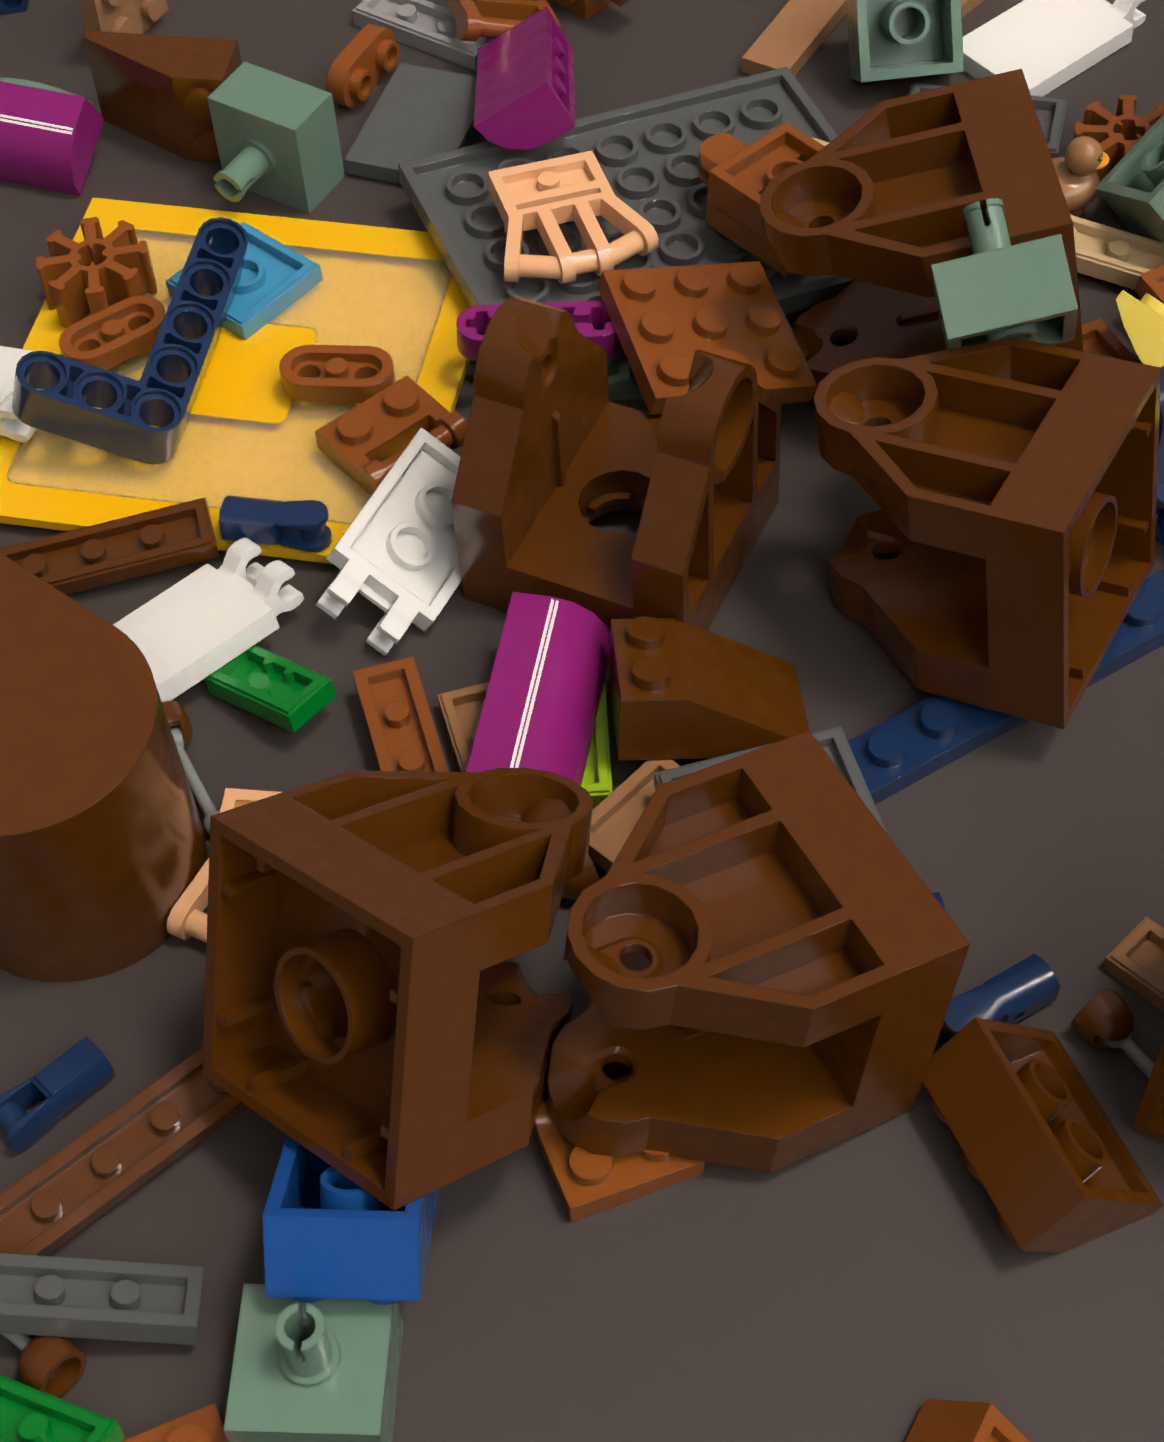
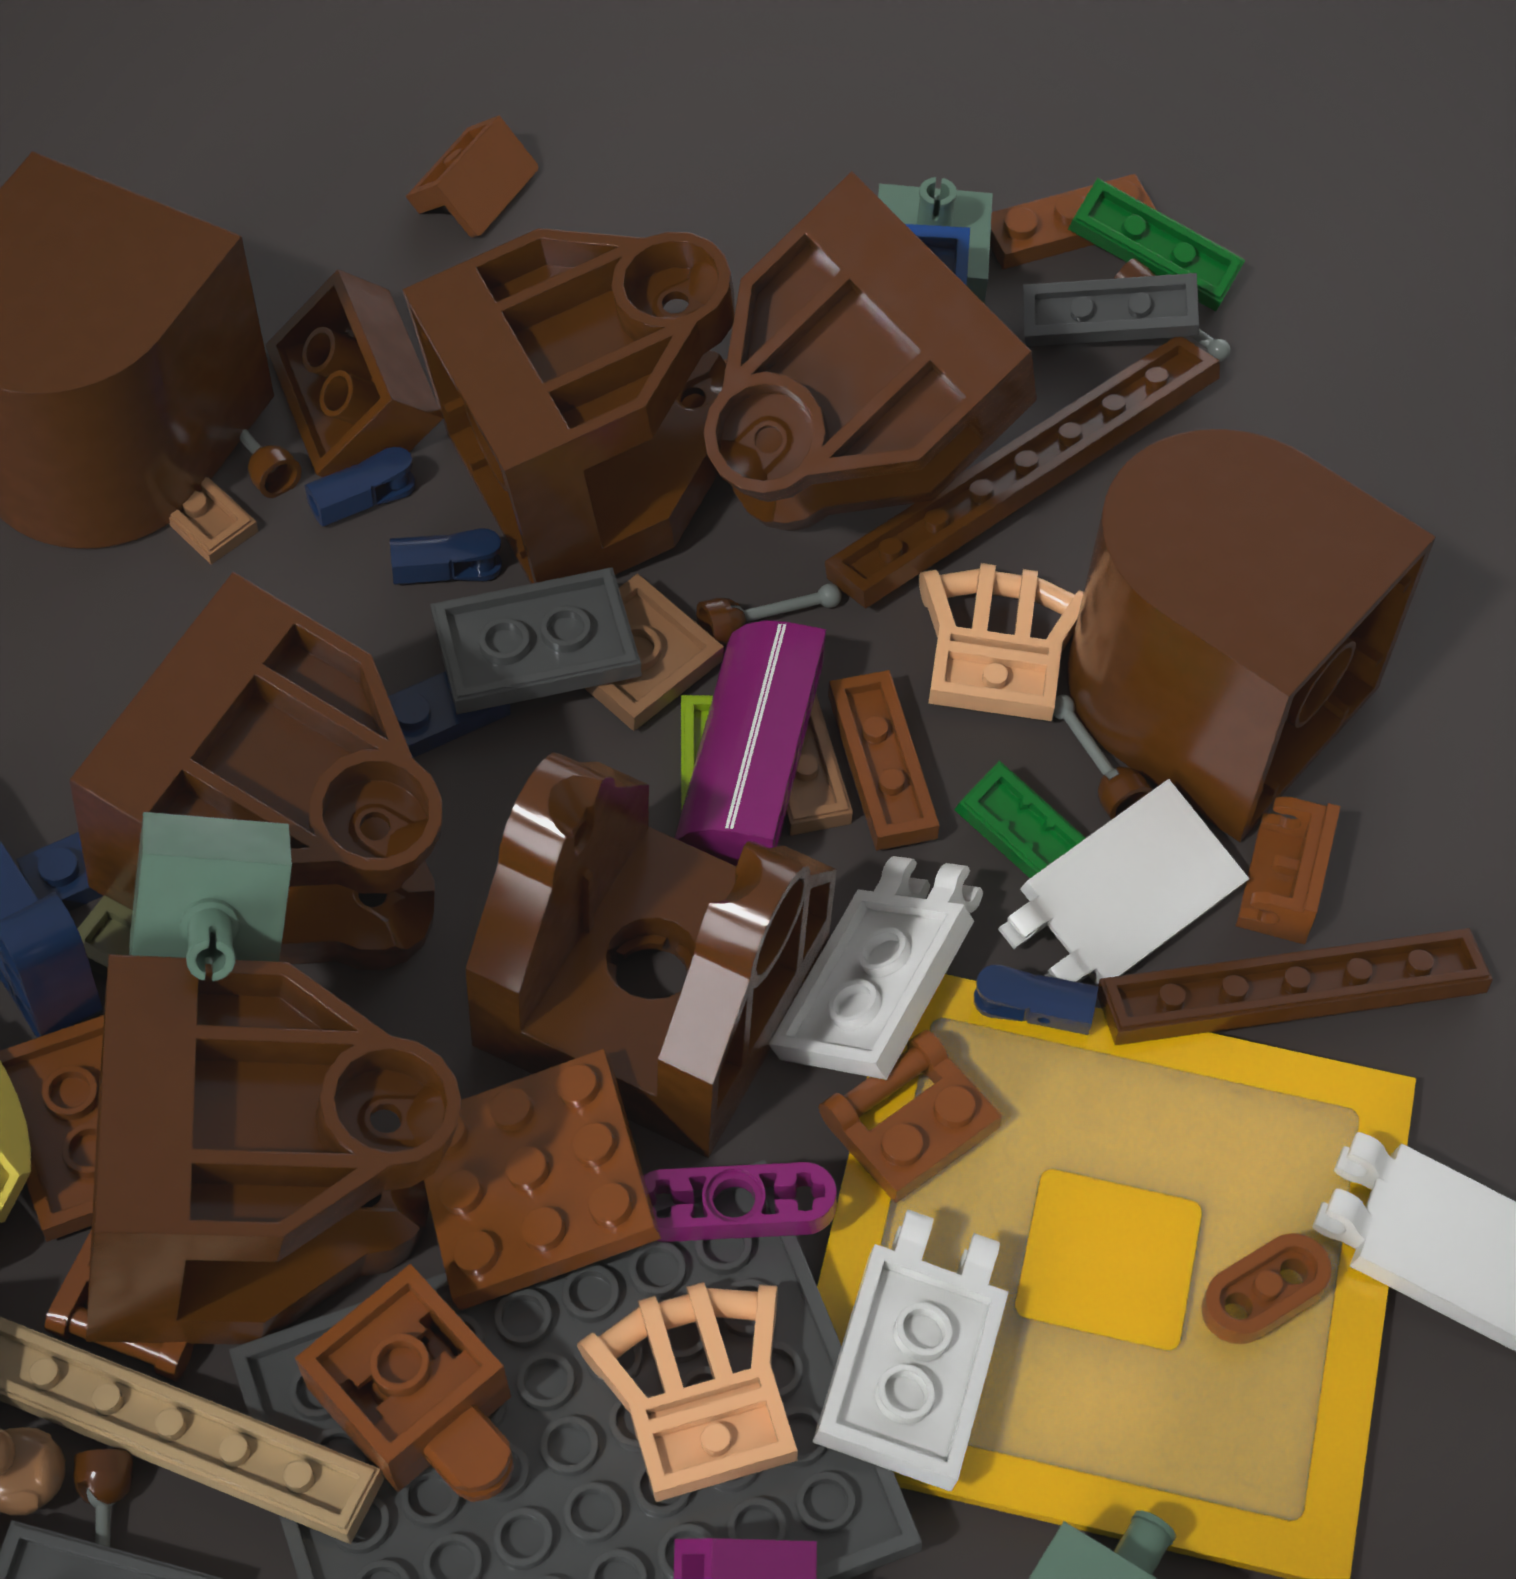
camera: 175 degrees right, 5 degrees up
(95, 271) = (1340, 1393): dark orange gear -> none
(177, 356) = (1186, 1207): beam -> none
(268, 284) = (1116, 1394): dark azure tile -> none
(336, 373) = (981, 1196): dark orange plate -> none
(397, 262) = (914, 1358): none -> white tile
(696, 692) = (605, 721): reddish brown slope -> none

